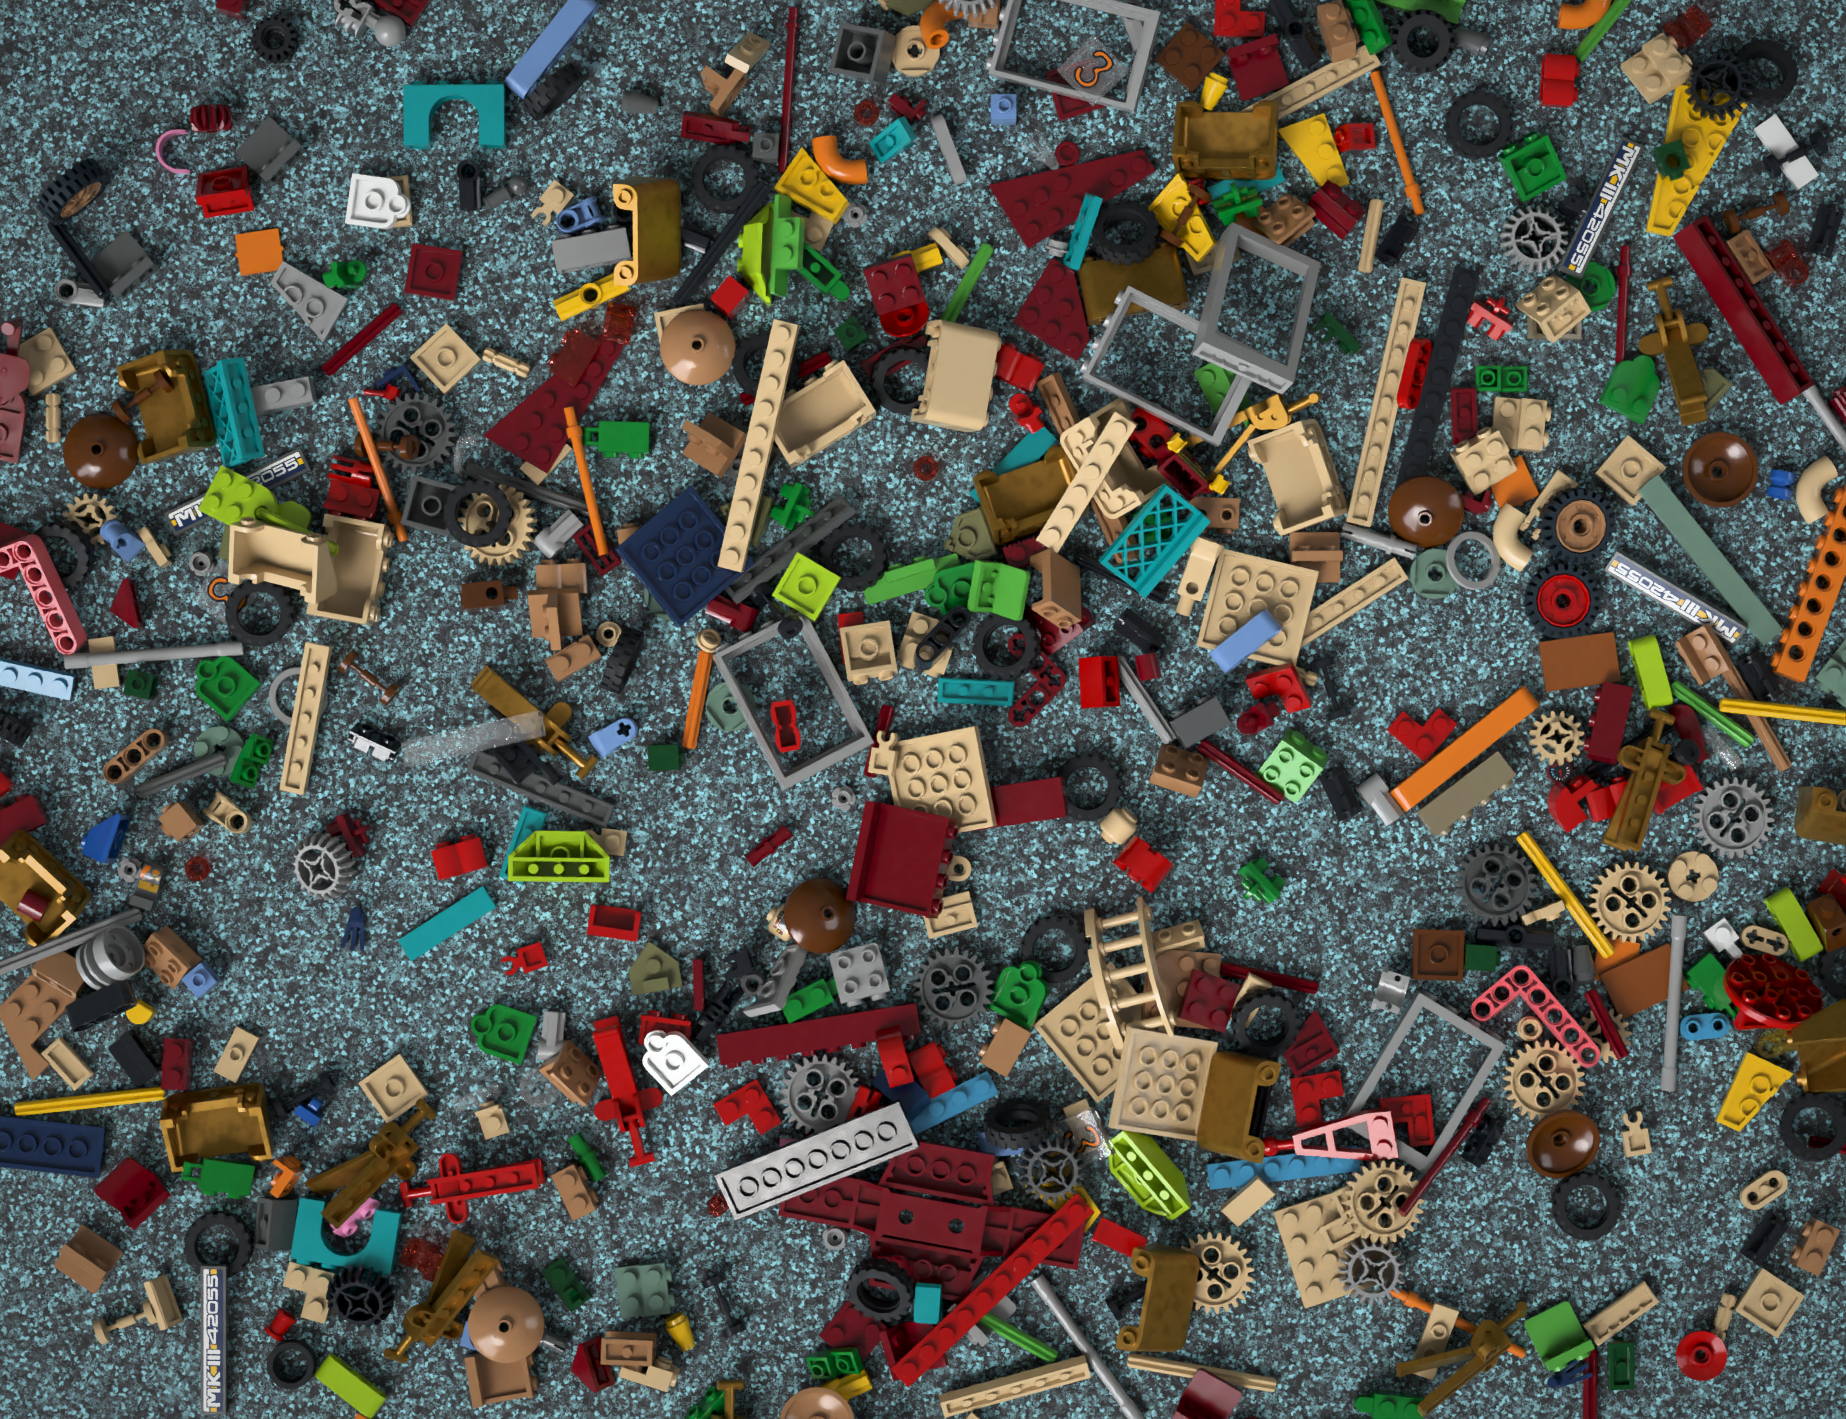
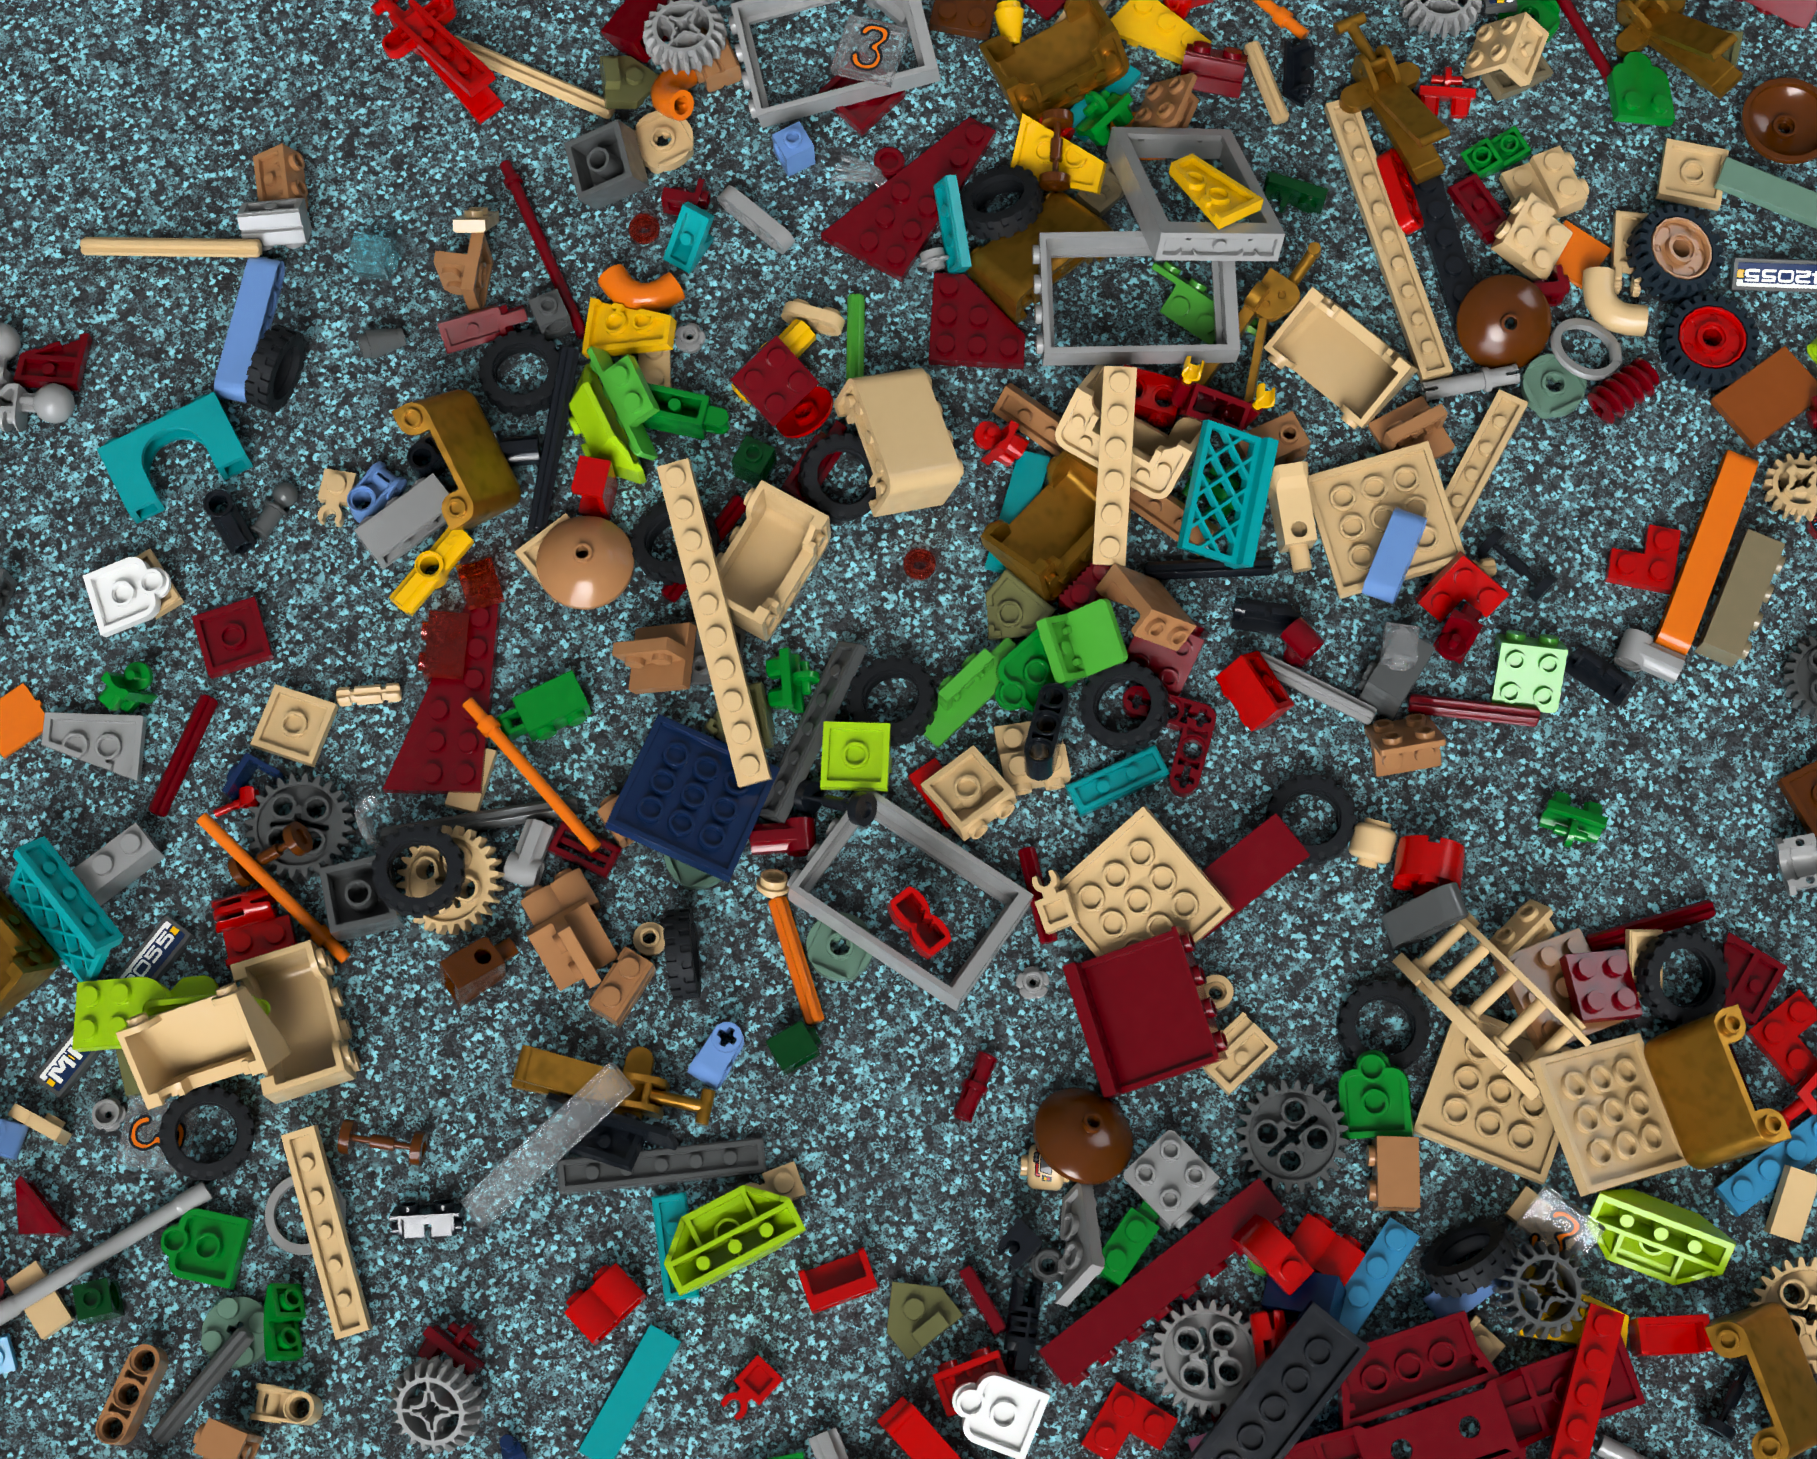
camera: 25 degrees left, 15 degrees down
(664, 34) = (372, 256): none -> clear light blue brick
(1017, 368) = (964, 403): red brick -> none
(1119, 895) = (1425, 915): none -> dark grey beam
(1205, 710) = (1400, 646): none -> clear bracket
(1264, 323) = (1213, 191): none -> yellow wing
(1446, 290) = (1389, 94): none -> pearl gold piece
(1478, 605) = (1623, 390): none -> dark red piece

